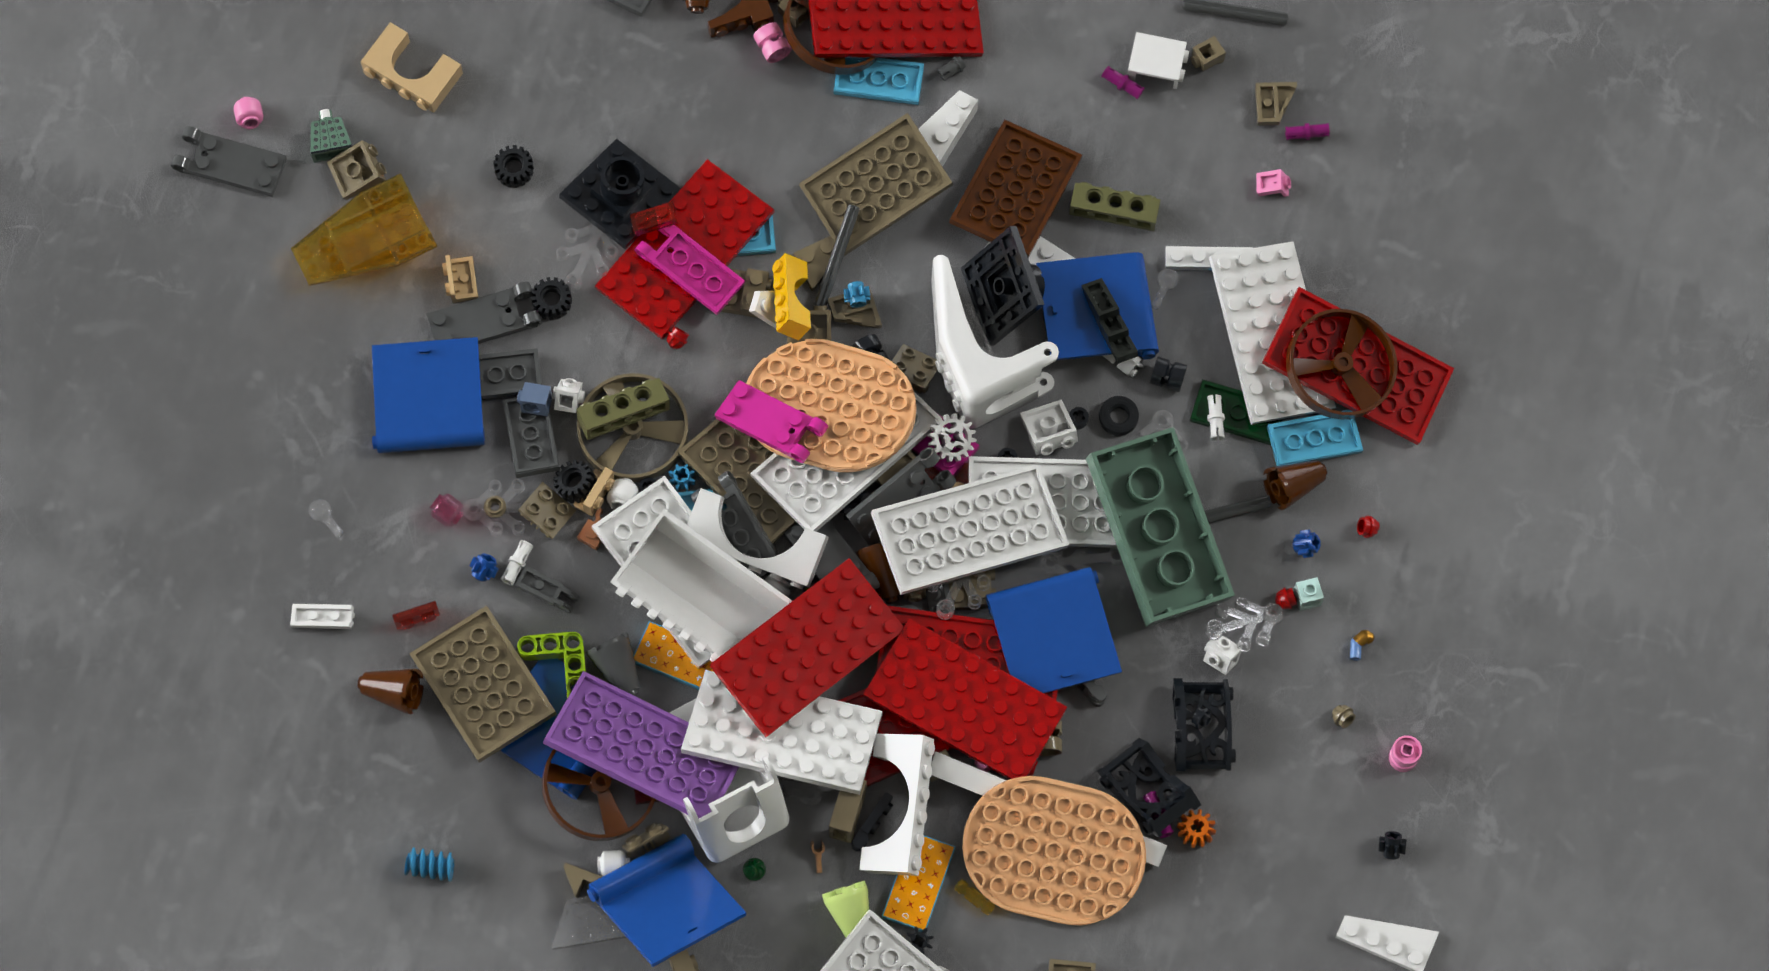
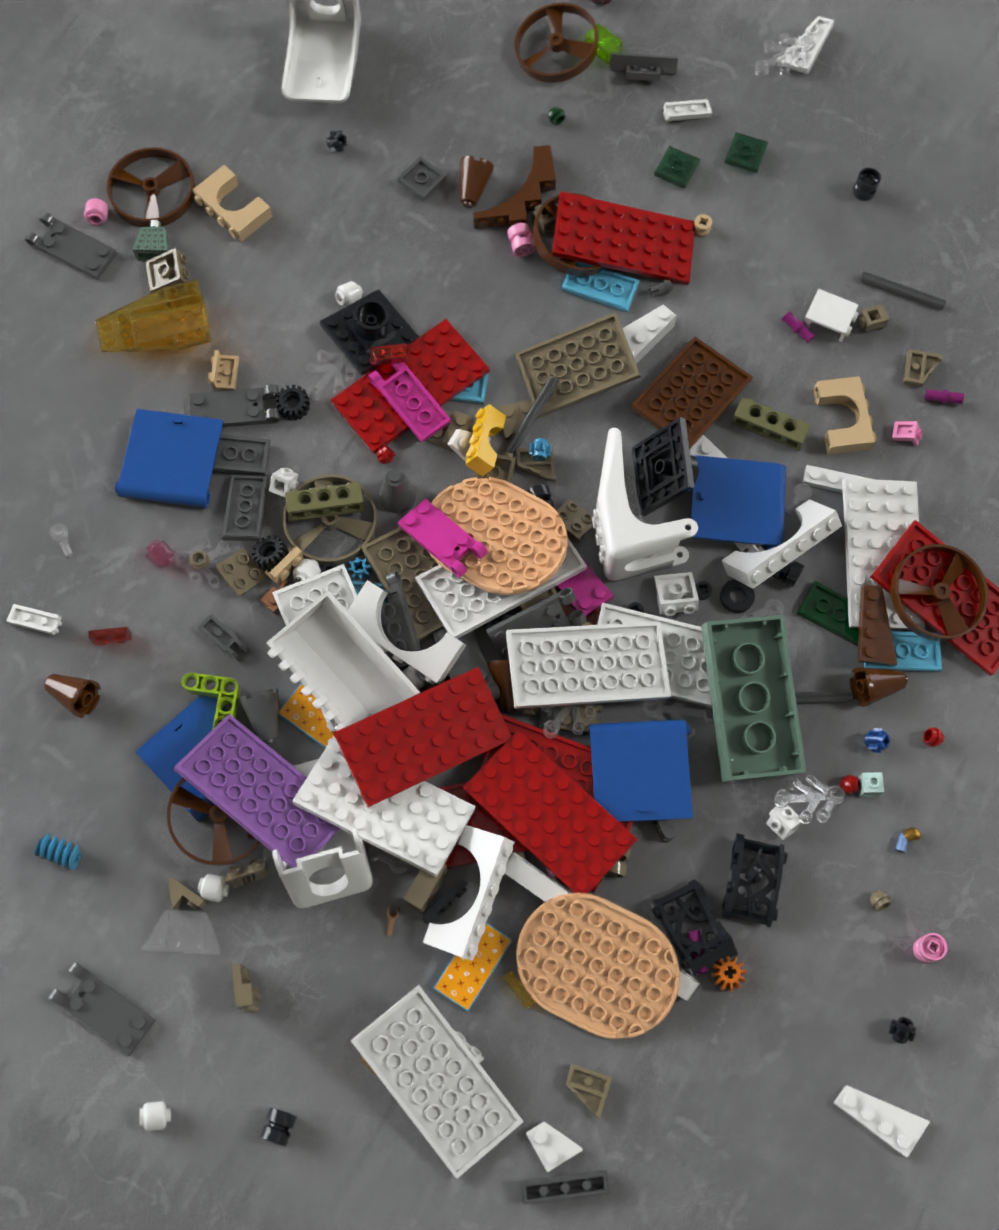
camera: 15 degrees right, 0 degrees up
(306, 66) = (152, 186): none -> reddish brown piece
(483, 684) = (147, 706): dark tan plate -> none
(484, 567) = (176, 607): blue gear -> none
(513, 154) = (291, 284): black tyre -> none
(516, 562) = (205, 610): white pin -> none
(535, 399) = (255, 479): sand blue brick -> none
(583, 152) = (348, 293): none -> white head
(665, 900) = (245, 933): blue door -> none
(702, 379) = (397, 492): none -> dark grey cone
(754, 869) = (333, 919): dark green plate -> none
(847, 905) = (405, 972): yellowish green cone -> none
(923, 934) = (464, 1014): black gear -> none
(960, 441) = (597, 589): white gear -> none
(1109, 320) = (746, 514): pearl dark grey slope -> none
(1132, 379) = (754, 568): none -> white arch
(1199, 151) = (851, 394): none -> tan arch
(1216, 417) = (820, 615): white pin -> none
(1279, 423) = (875, 635): none -> reddish brown wing

